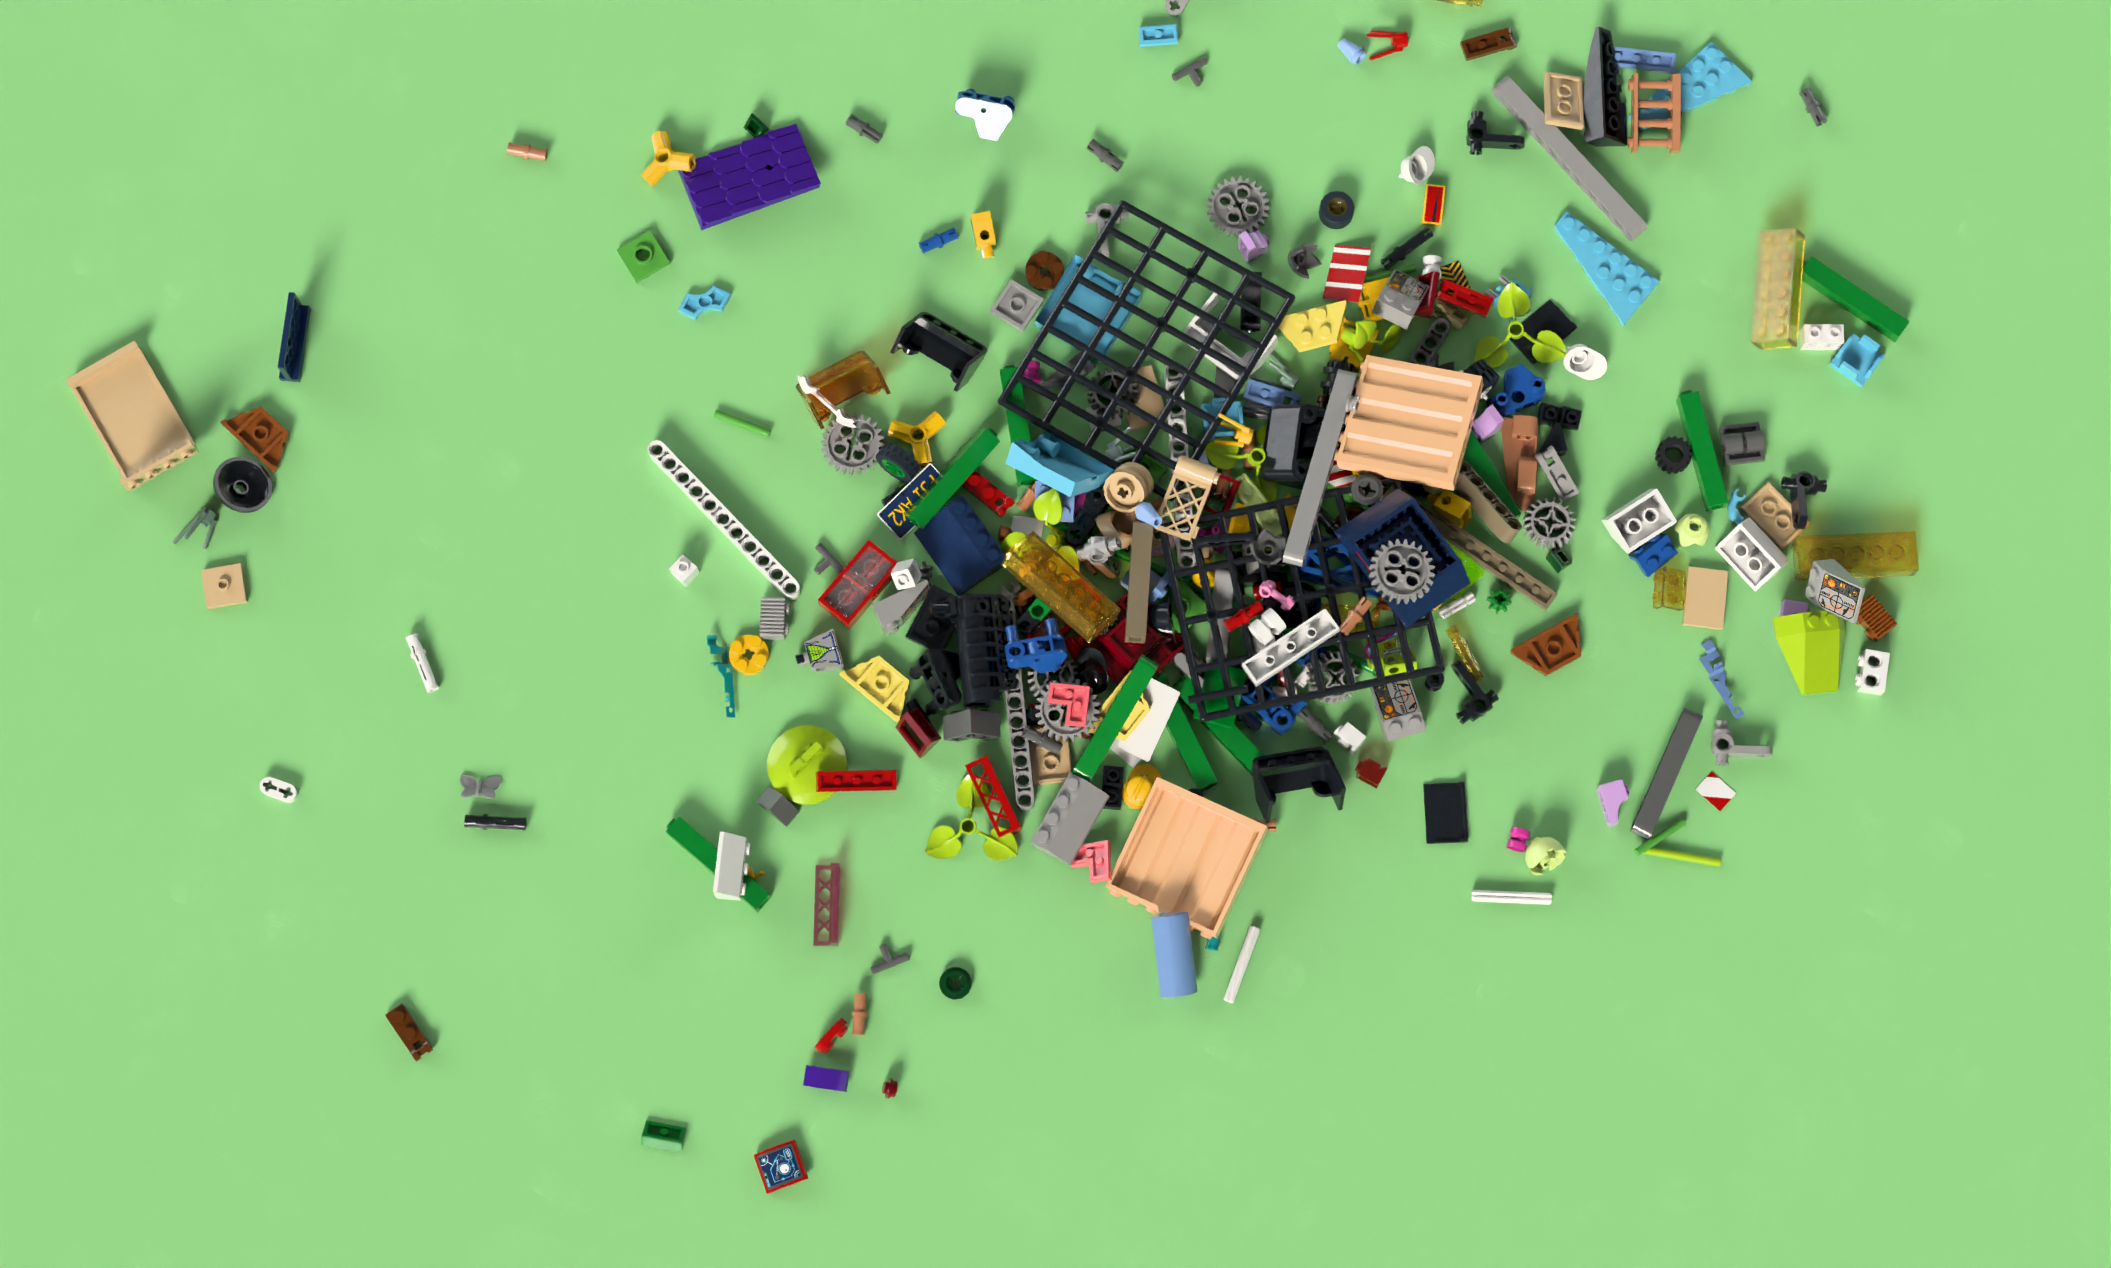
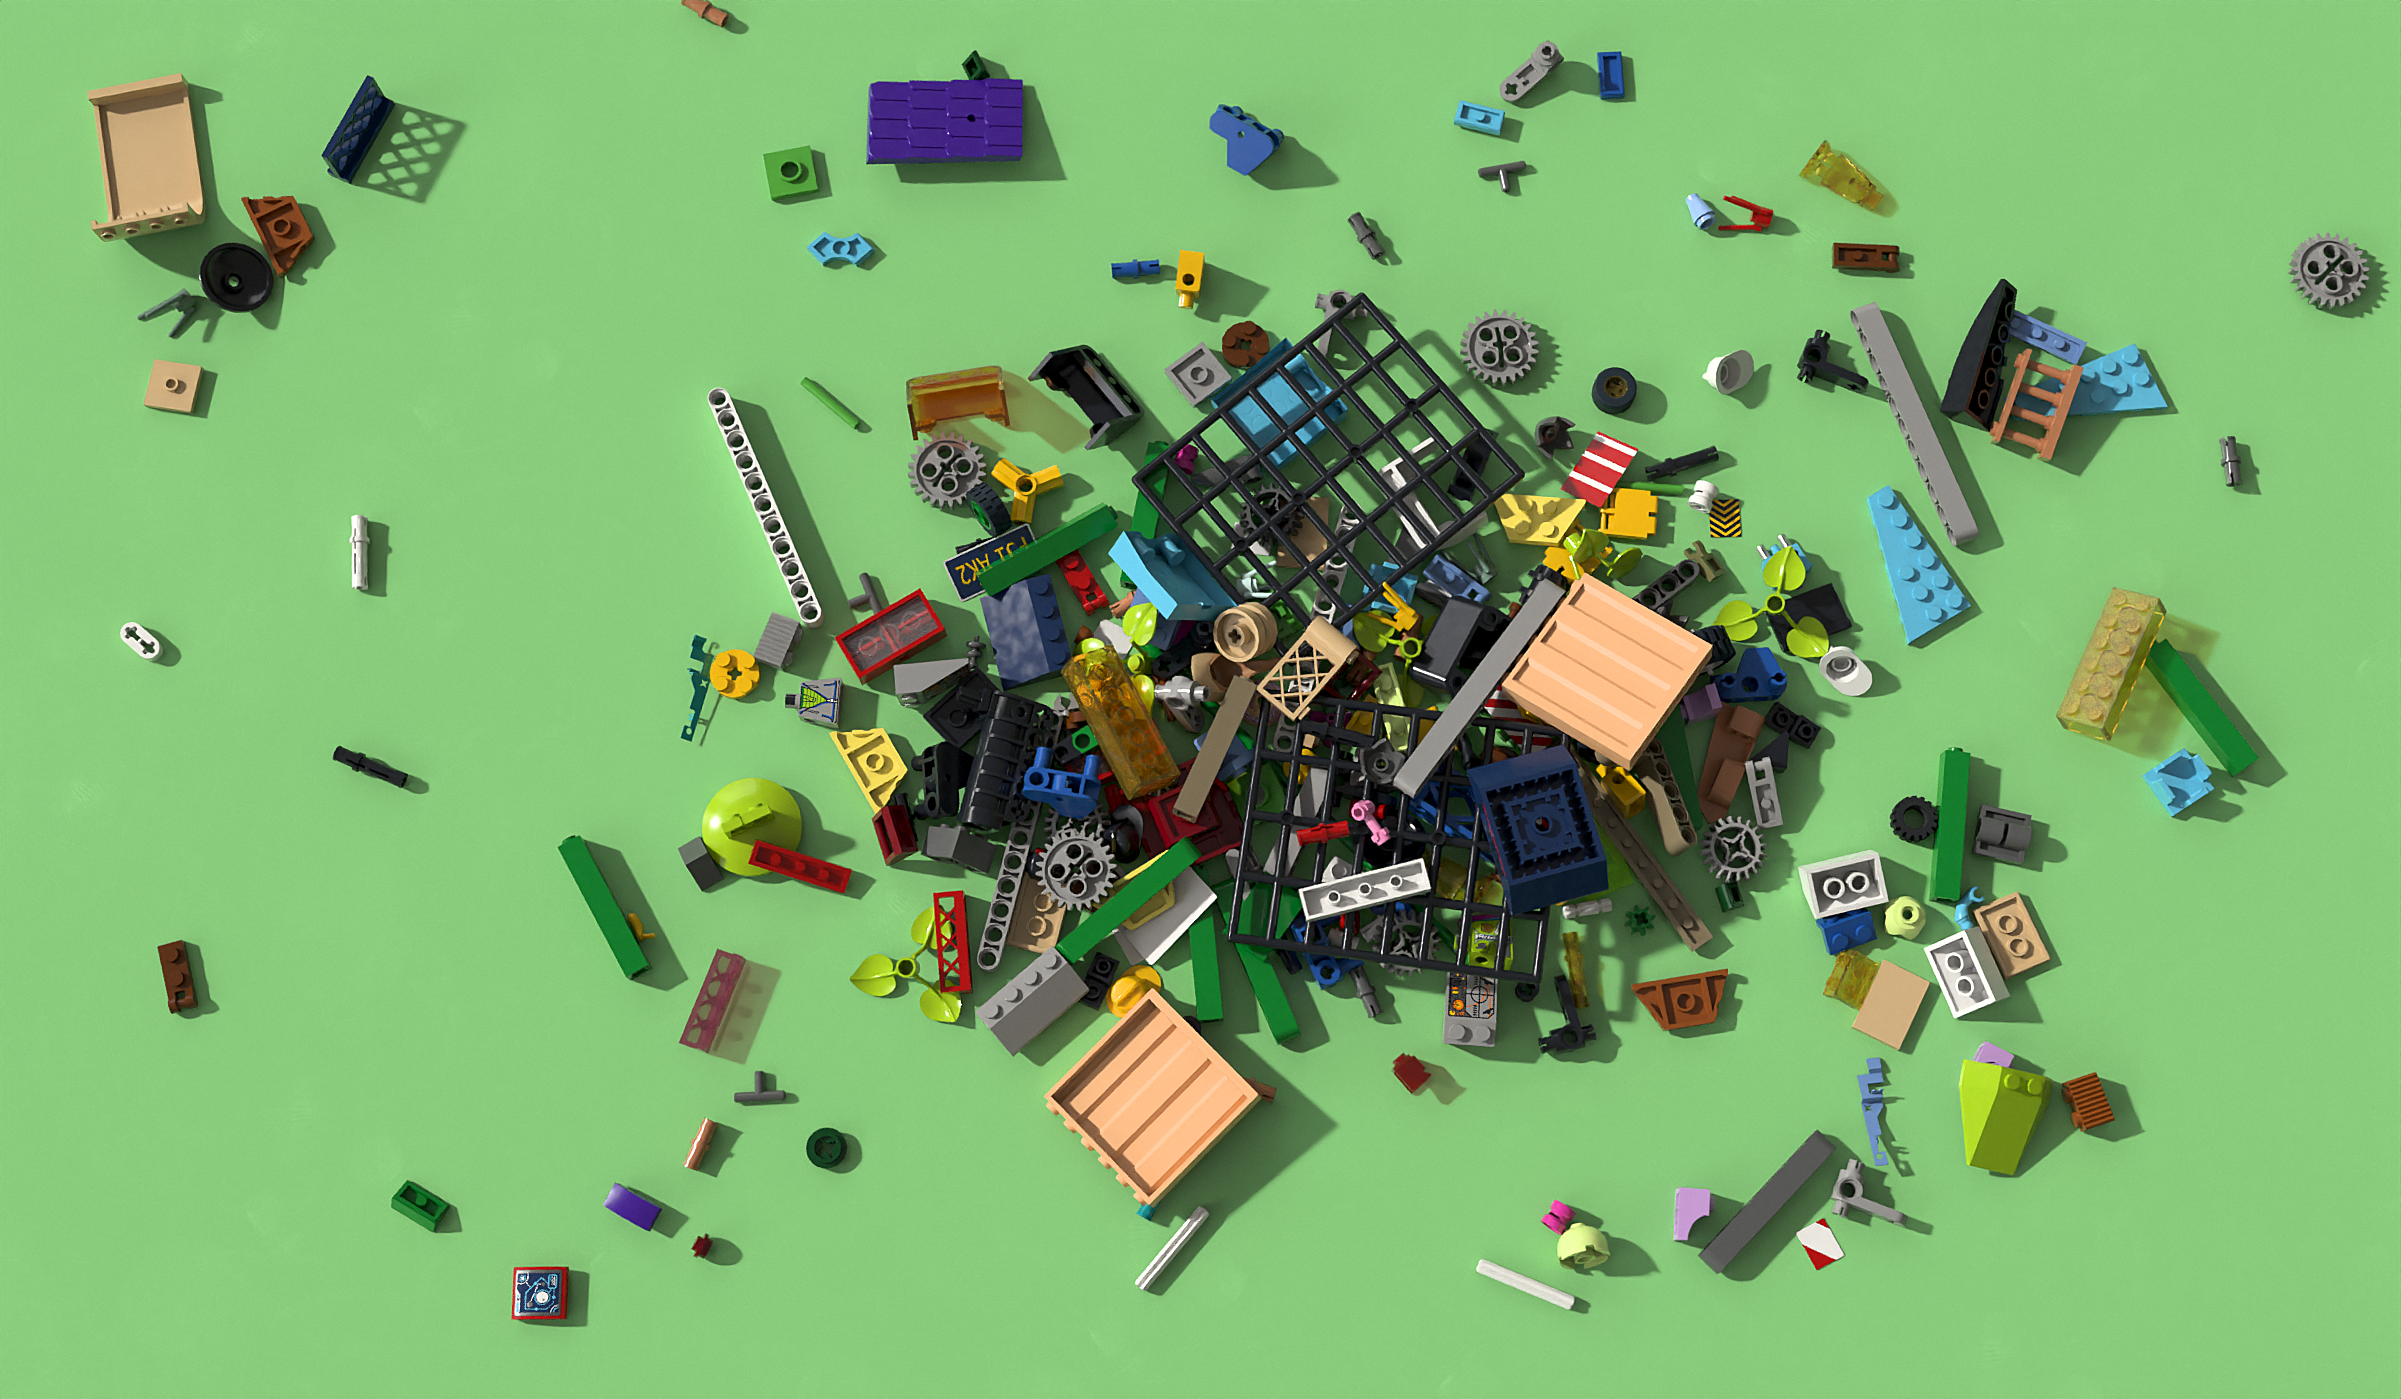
camera: 20 degrees right, 0 degrees up
(481, 789) = (372, 724): light grey piece -> none
(675, 160) = (858, 70): yellow piece -> none
(684, 570) = (697, 550): white brick -> none
(731, 866) = (612, 916): white slope -> none
(837, 1030) = (649, 1163): red plate -> none
(841, 416) = (943, 430): white piece -> none
(863, 129) = (1097, 111): dark grey axle -> none
(906, 574) = (946, 643): white brick -> none
(1042, 740) = (1034, 895): dark grey pin -> none
(1076, 699) = (1088, 862): coral plate -> none
(1098, 858) = (1048, 1061): coral plate -> none
(1147, 514) = (1254, 671): light blue cone -> none
(1162, 617) = (1228, 801): black piece -> none
(1174, 954) = (1093, 1208): medium blue brick -> none
(1218, 694) = (1258, 915): black bar -> none
(1252, 245) = (1500, 398): lavender arch -> none
(1267, 626) = (1345, 855): white wheel -> none
(1296, 771) = (1320, 1040): black windscreen -> none
(1349, 737) = (1400, 1021): white brick -> none
(1352, 403) = (1545, 624): light grey bush -> none
(1355, 615) = (1455, 879): nougat pin -> none
(1375, 486) = (1522, 722): dark grey gear -> none
(1400, 299) = (1650, 520): light grey slope -> none
(1400, 588) = (1518, 867): light grey gear -> none
(1427, 305) = (1684, 526): dark red tile -> none
(1433, 204) = (1732, 423): red slope -> none
(1445, 813) = (1483, 1153): black piece -> none
(1464, 298) = (1729, 546): red plate -> none
(1563, 100) = (1931, 353): tan tile -> none
(1659, 837) = (1731, 1276): bright green bar -> none
(1684, 856) = (1748, 1307): lime bar -> none
(1798, 494) = (2049, 918): black piece -> none
(1821, 337) = (2144, 740): white brick -> none
(1835, 589) = (2052, 1052): light grey slope -> none
(1860, 554) = (2092, 1018): clear yellow brick -> none
(1877, 673) = (2069, 1171): white brick -> none

